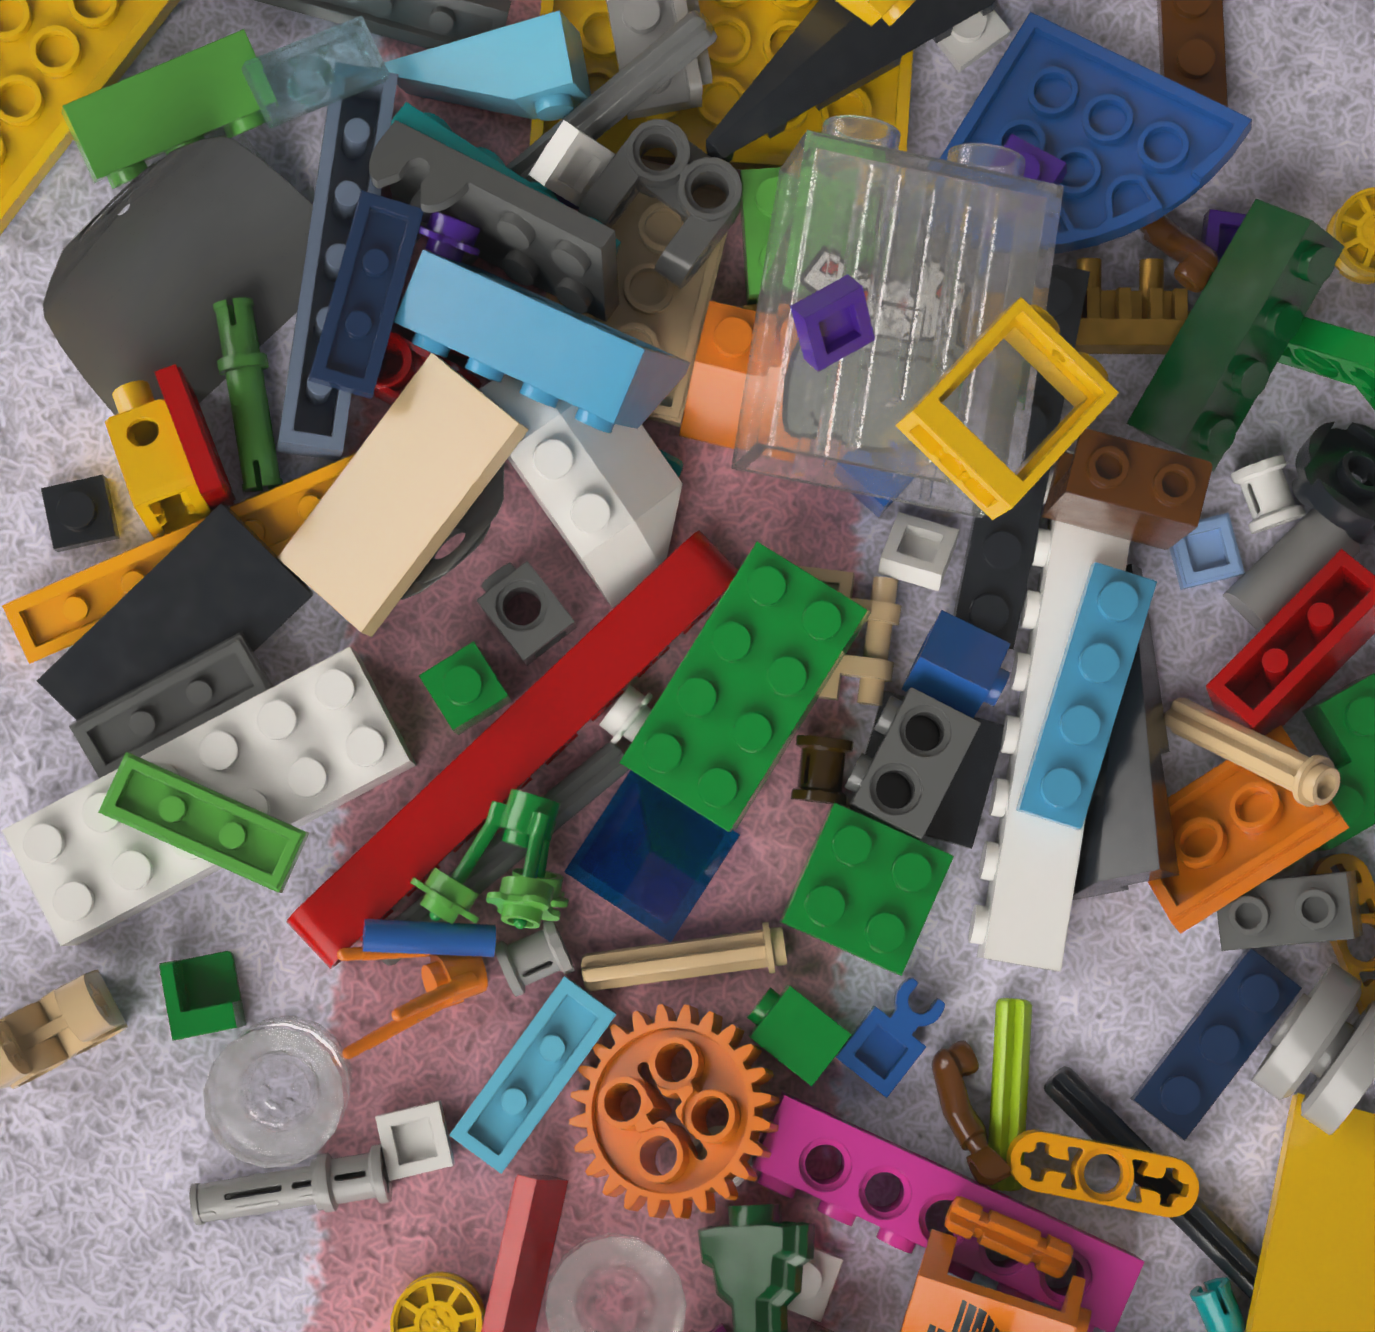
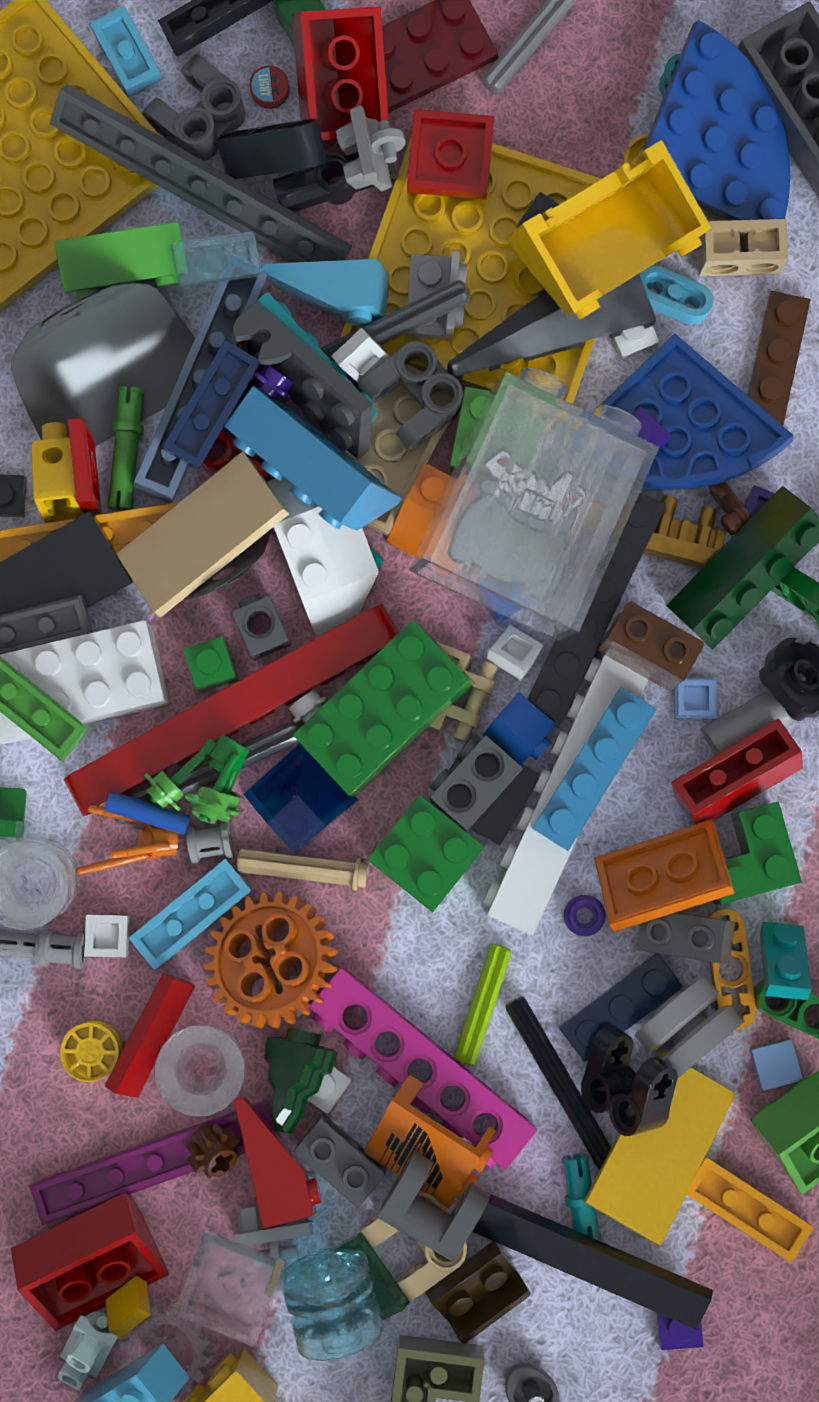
camera: 20 degrees right, 0 degrees up
(796, 1032) = (359, 931): green brick -> none
(821, 769) = (419, 772): dark brown bush -> none
(833, 322) = (488, 495): dark purple plate -> none
(883, 1045) = (412, 954): blue plate -> none
(948, 1069) = (449, 1013): reddish brown arm -> none
(963, 454) = (549, 599): yellow window -> none
(1009, 1237) = (456, 1092): orange axle -> none
(1129, 817) = (602, 845): black wedge -> none
(1145, 927) = (596, 922): none -> dark purple plate
(1152, 1165) = (559, 1072): light orange beam -> none
(1241, 1166) = (633, 1099): none -> black piece
(1267, 494) = (743, 672): white bush -> none
(1309, 778) = (717, 856): tan axle -> none

